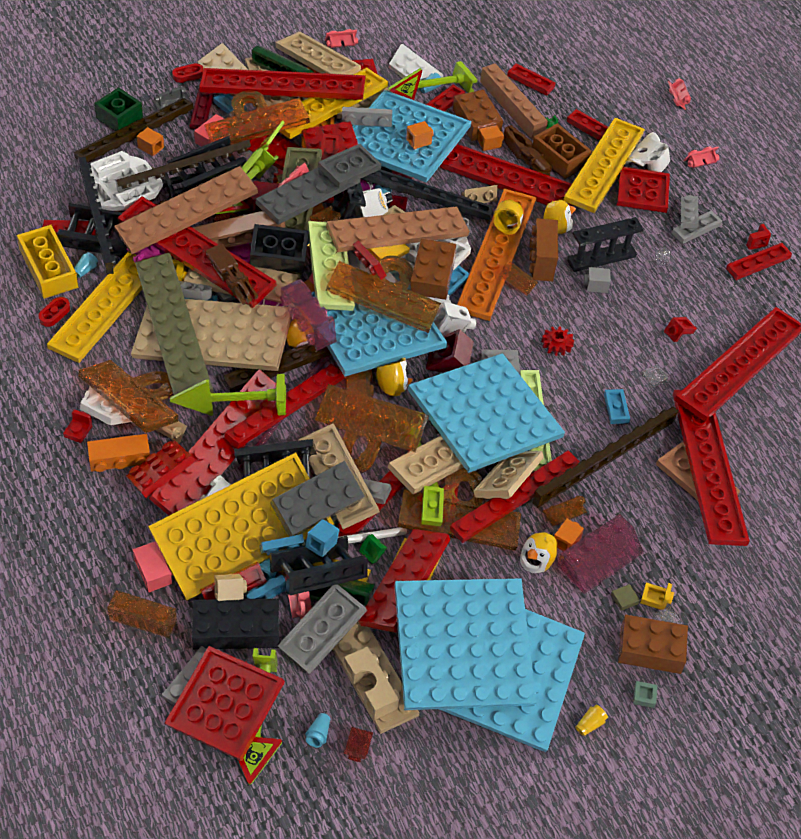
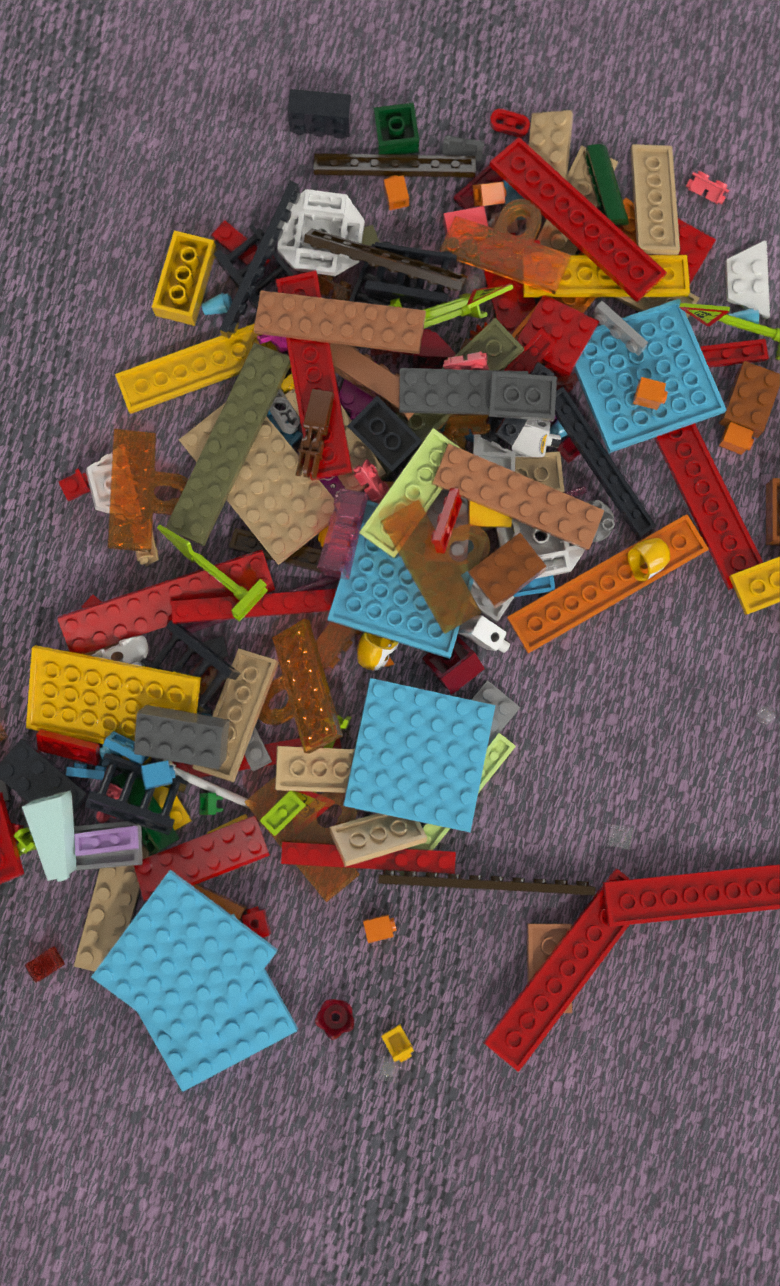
camera: 45 degrees right, 30 degrees up
(52, 314) = (151, 341): red plate -> none
(59, 127) = (319, 113): none -> black brick
(118, 452) = (83, 540): orange brick -> none
(152, 566) = (18, 675): coral brick -> none
(160, 468) = (94, 592): red plate -> none
(212, 106) = (489, 194): none -> orange brick
(229, 587) = (56, 752): tan brick -> none
(278, 632) = (53, 833): none -> light aqua slope
(288, 276) = (368, 474): none -> coral hinge
(318, 731) = (28, 926): medium azure cone -> none
(326, 611) = (106, 841): none -> lavender plate
(364, 667) = (100, 909): tan arch -> none
(482, 194) = (664, 505): tan hinge -> none
(518, 278) = (596, 637): clear orange hinge -> none
(522, 149) = (755, 487): reddish brown arm -> none
(539, 547) = (338, 923): piece -> none
(544, 249) = (648, 621): dark orange brick -> none
(557, 341) = (570, 721): red gear -> none
(562, 212) = (705, 591): yellow piece -> none
(568, 509) = (402, 901): clear orange hinge -> none
(591, 720) = (240, 1098): yellow cone -> none
(597, 280) = (671, 692): light grey brick -> none
(600, 554) = (390, 968): clear pink slope -> none
(600, 604) = (331, 1027): none -> dark red piece
(609, 254) = (713, 664): black fence -> none
(617, 406) = (551, 839): dark azure plate -> none
(625, 597) = (373, 1020): olive tile -> none
(645, 694) = (302, 1115): sand green plate -> none
(653, 644) = (349, 1082): dark orange brick -> none
(679, 326) = (697, 807): red bracket -> none

